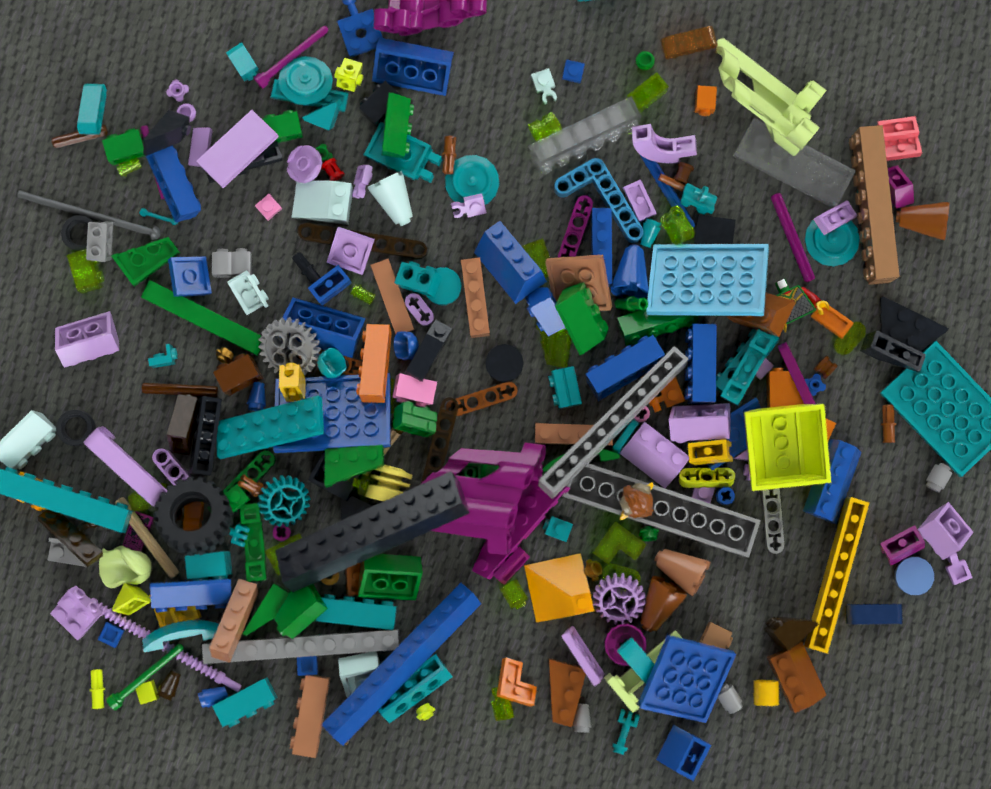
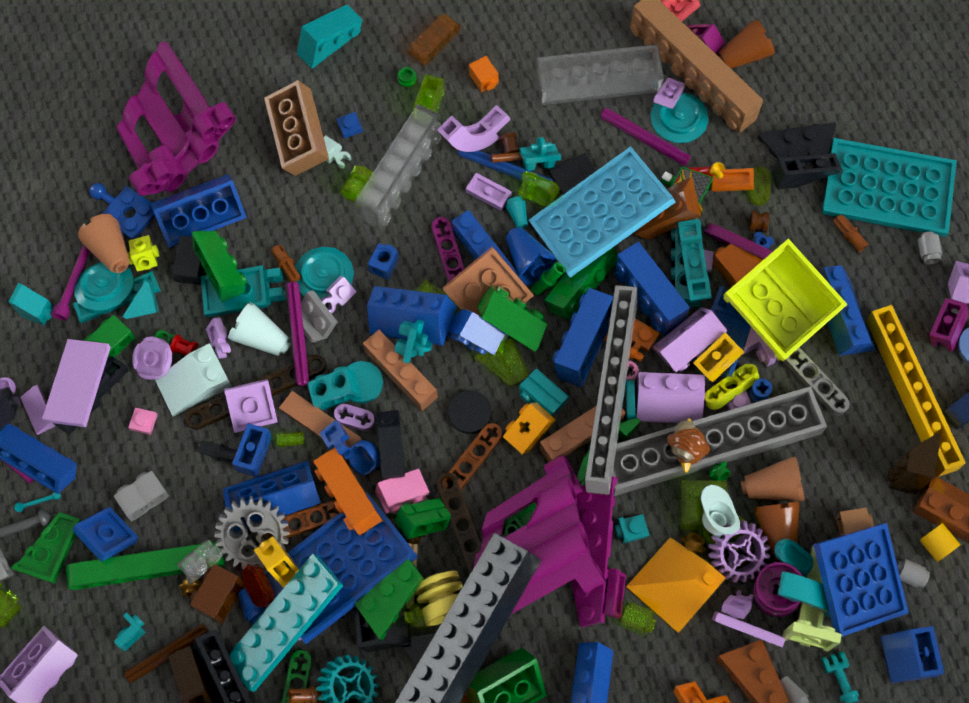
camera: 35 degrees left, 15 degrees down
(239, 344) = (200, 560): none -> clear hips
(247, 293) = (175, 509): light aqua bracket -> none
(269, 388) = (258, 586): none -> clear red plate
(326, 50) = (105, 241): none -> nougat cone
(331, 363) = (304, 520): teal hair -> none
(394, 316) = (335, 436): none -> blue plate
(419, 218) = (297, 333): none -> magenta axle
(439, 213) = (317, 319): none -> light grey bracket
(497, 287) = (415, 341): none -> teal hips
(518, 210) = (383, 269): none -> blue brick
(527, 411) = (539, 422): none -> light orange brick
(528, 49) = (296, 128): none -> medium nougat brick
(589, 635) = (738, 605): none -> lavender plate
(613, 191) = (453, 205): dark azure beam -> none
(623, 561) = (718, 511): none -> light aqua piece
(653, 630) = (791, 553): none -> teal tile
(779, 107) = (561, 40): yellowish green panel -> none

